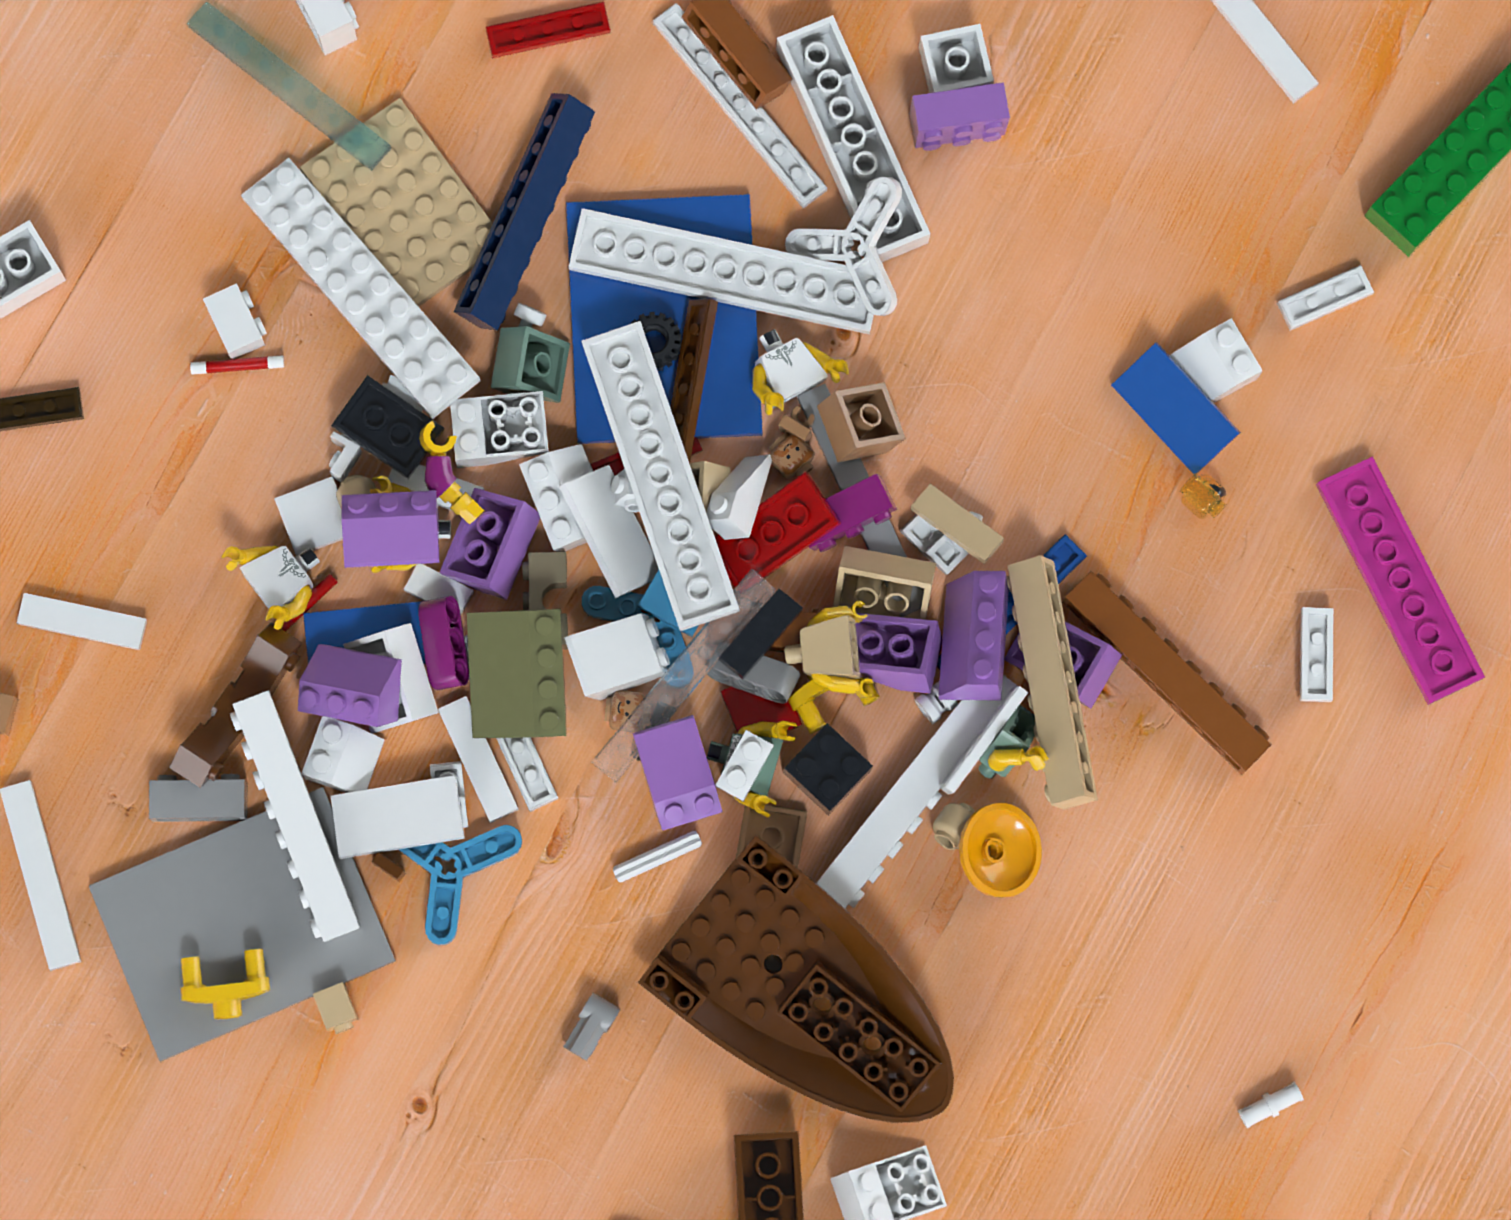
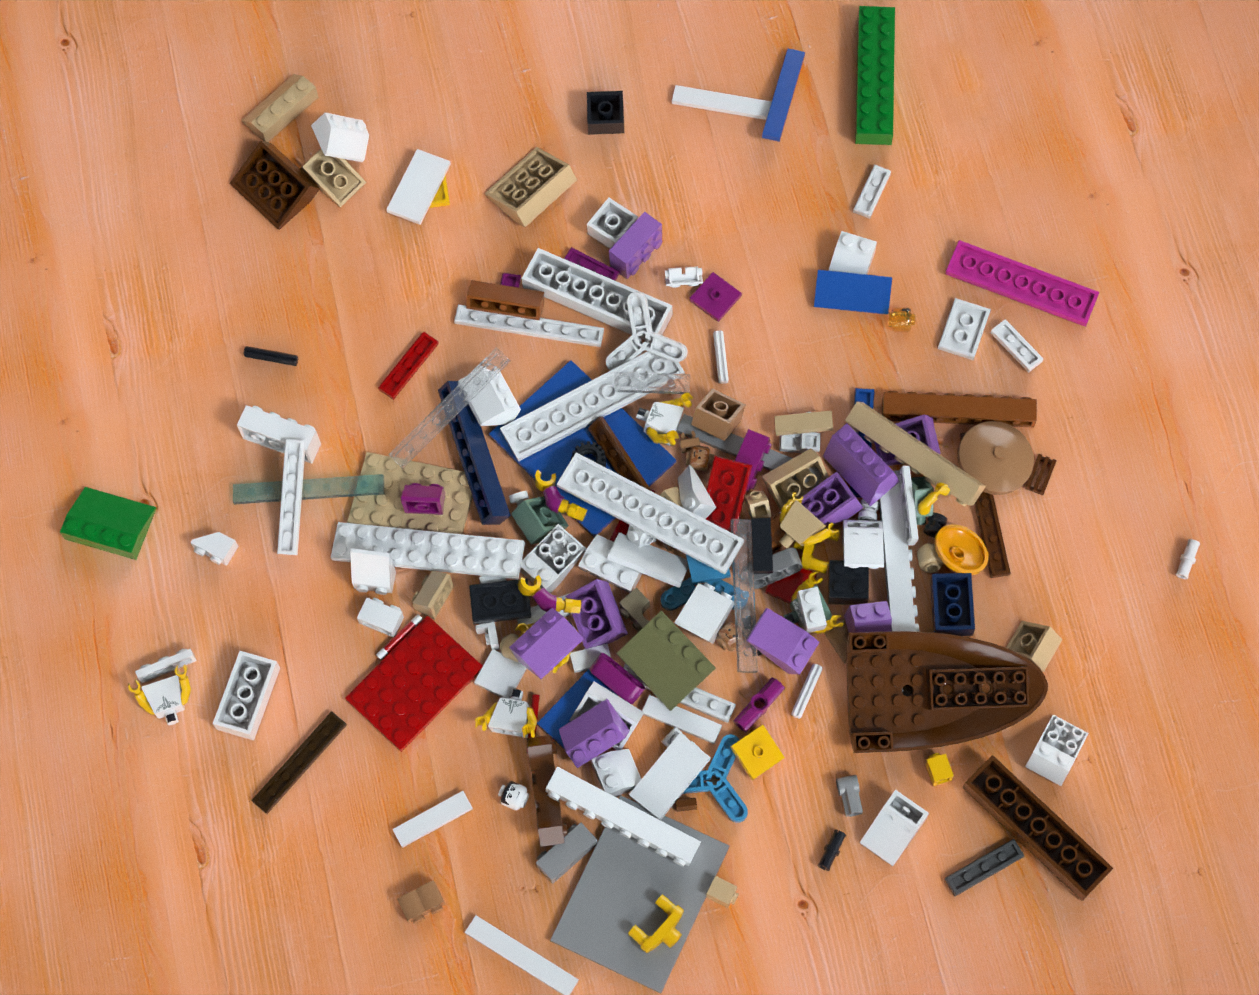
camera: 30 degrees left, 10 degrees down
(119, 64) = (216, 546): none -> white slope
(198, 677) = (513, 795): none -> white head
(205, 437) = (414, 683): none -> red plate
(256, 78) = (291, 496): none -> white tile
(268, 259) = (372, 571): none -> white slope
(319, 347) = (433, 594): none -> tan slope
(408, 218) = (423, 499): none -> magenta slope
(509, 1072) = (831, 850): none -> black pin
(528, 878) = (757, 752): none -> yellow plate
(540, 130) = (449, 408): none -> clear tile
(562, 824) = (750, 713): none -> magenta piece
(567, 360) = (555, 500): none -> yellow piece
(602, 157) = (494, 403): none -> white slope
(604, 1112) = (894, 827): none -> white slope
(725, 1089) = (939, 769): none -> yellow brick
(768, 27) = (511, 280): none -> magenta tile
(805, 578) = (758, 505): none -> tan brick
(806, 839) = (869, 617): none -> medium lavender slope
(816, 311) = (651, 383): none -> clear tile
(883, 93) = (592, 264): none -> magenta tile
(884, 739) = (863, 544): none -> white slope
(926, 907) = (952, 604): none -> dark blue brick
(937, 349) = (720, 357): none -> white axle
(979, 1042) = (1035, 642): none -> tan slope
(994, 216) = (675, 278): none -> white hinge
(1000, 790) = (935, 523): none -> black wheel
(1002, 266) = (715, 296): none -> magenta plate
(1088, 818) = (991, 534): none -> reddish brown tile
(1154, 772) = (996, 457): none -> medium nougat dish
(1215, 829) = (1046, 460): none -> reddish brown tile
(1272, 575) = (964, 329): none -> white tile
(1330, 74) = (783, 95): none -> blue tile

